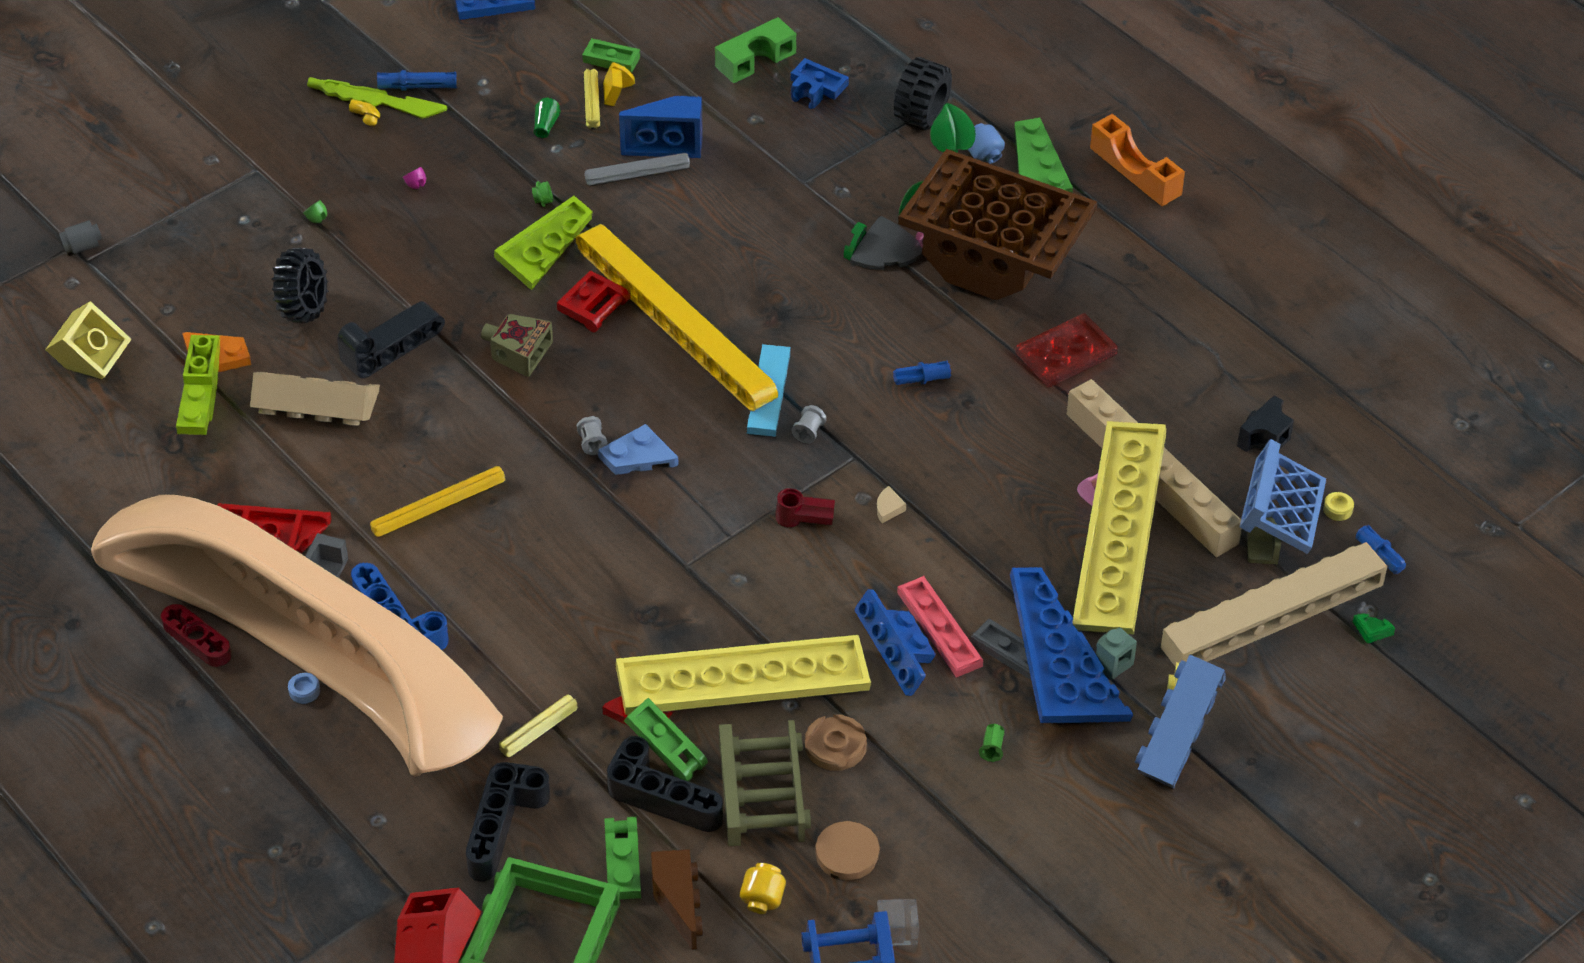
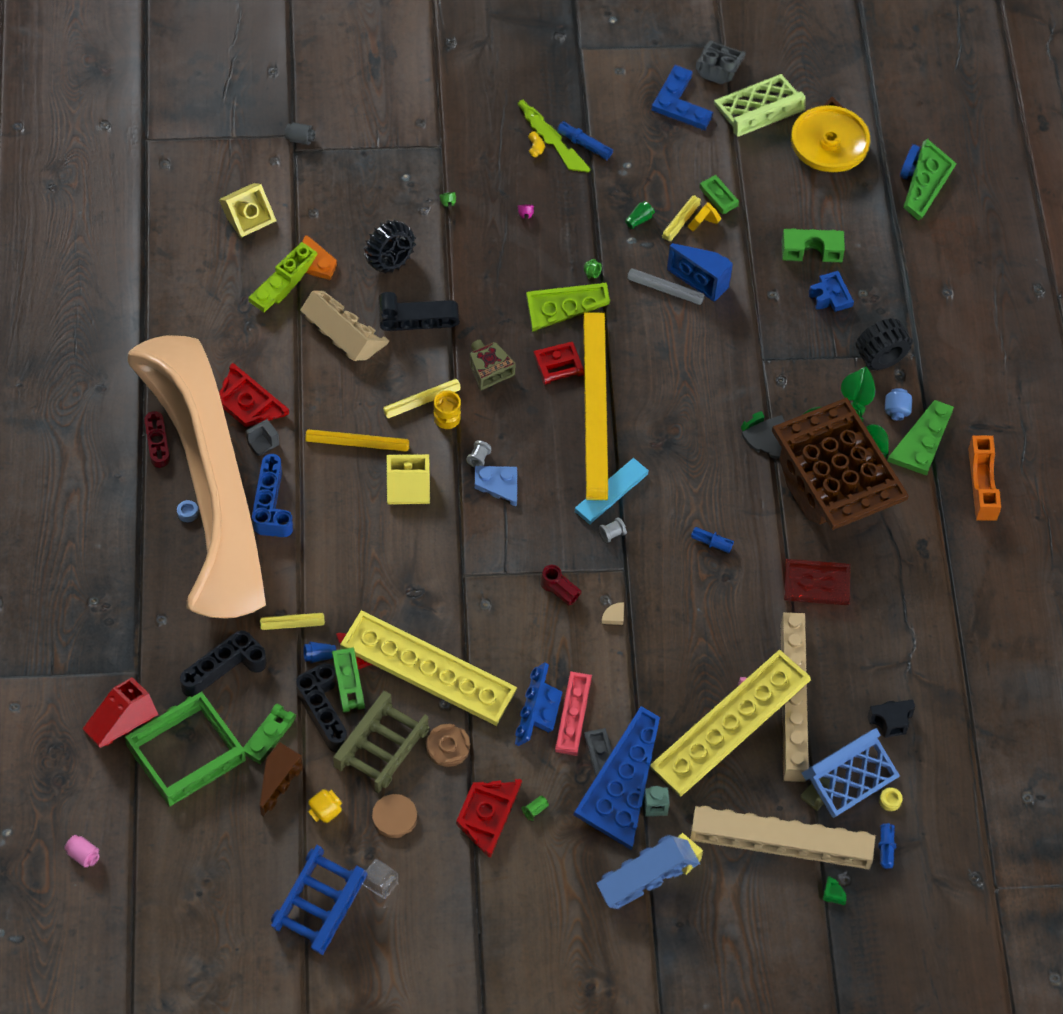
camera: 35 degrees right, 10 degrees up
(472, 419) = (420, 398): none -> light yellow axle
(516, 410) = (447, 409): none -> yellow wheel
(537, 502) = (408, 479): none -> light yellow slope
(598, 738) = (318, 652): none -> blue cone
(947, 780) = (487, 812): none -> red wing

